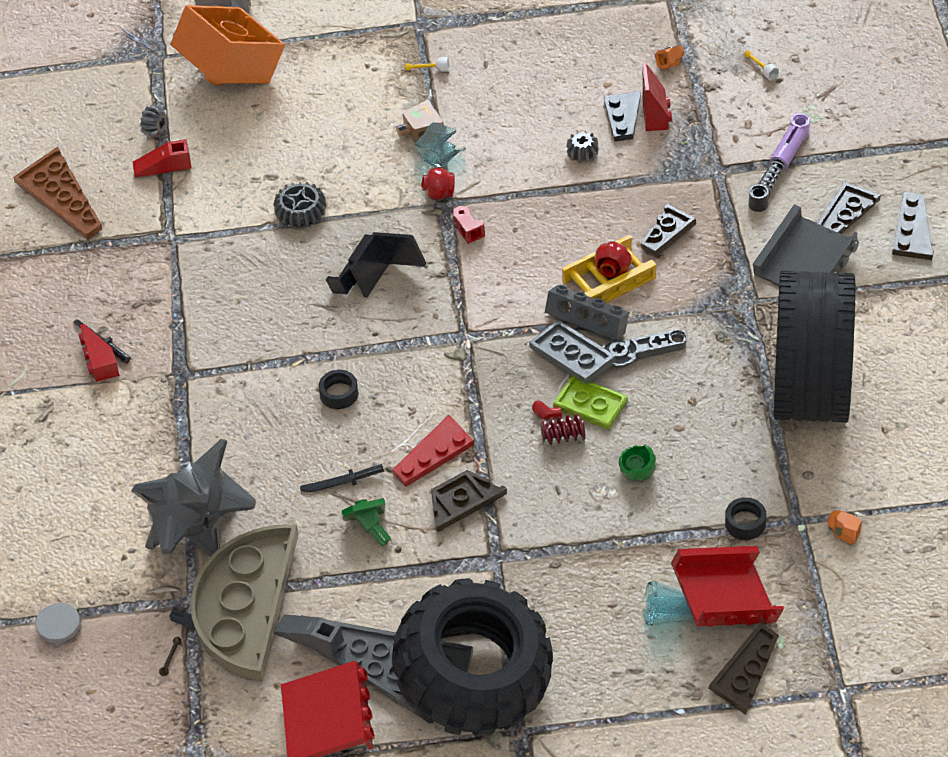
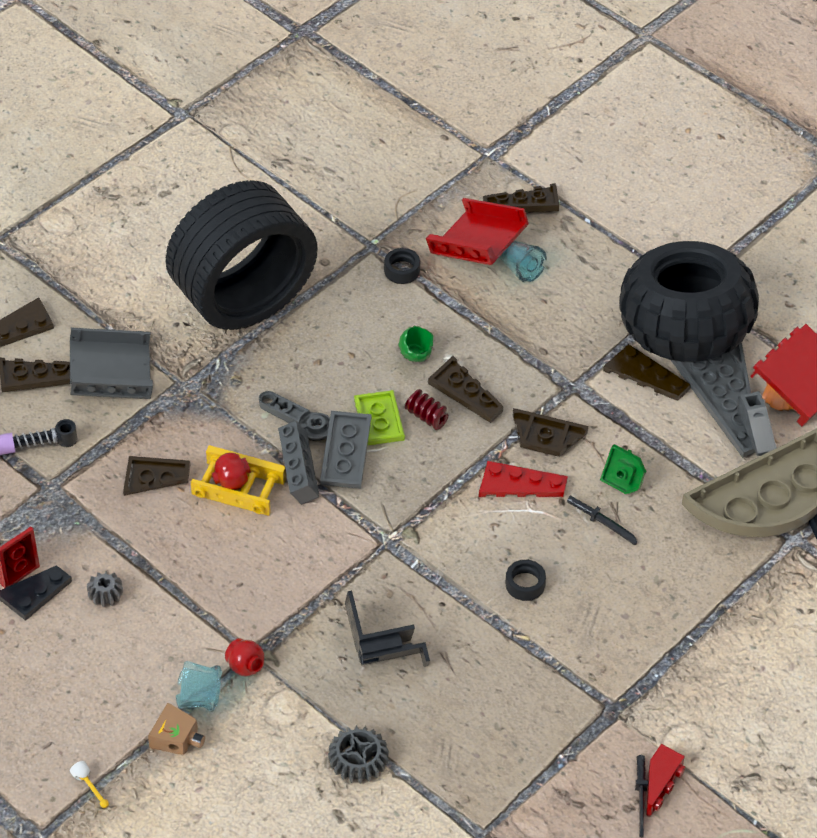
camera: 135 degrees left, 0 degrees up
(192, 503) = (746, 547): dark grey piece -> none
(467, 226) = (270, 614): leg -> none
(544, 411) = (416, 435): red arm -> none
(567, 472) = (460, 386): none -> dark brown wing
(845, 526) = (357, 209): orange rock -> none

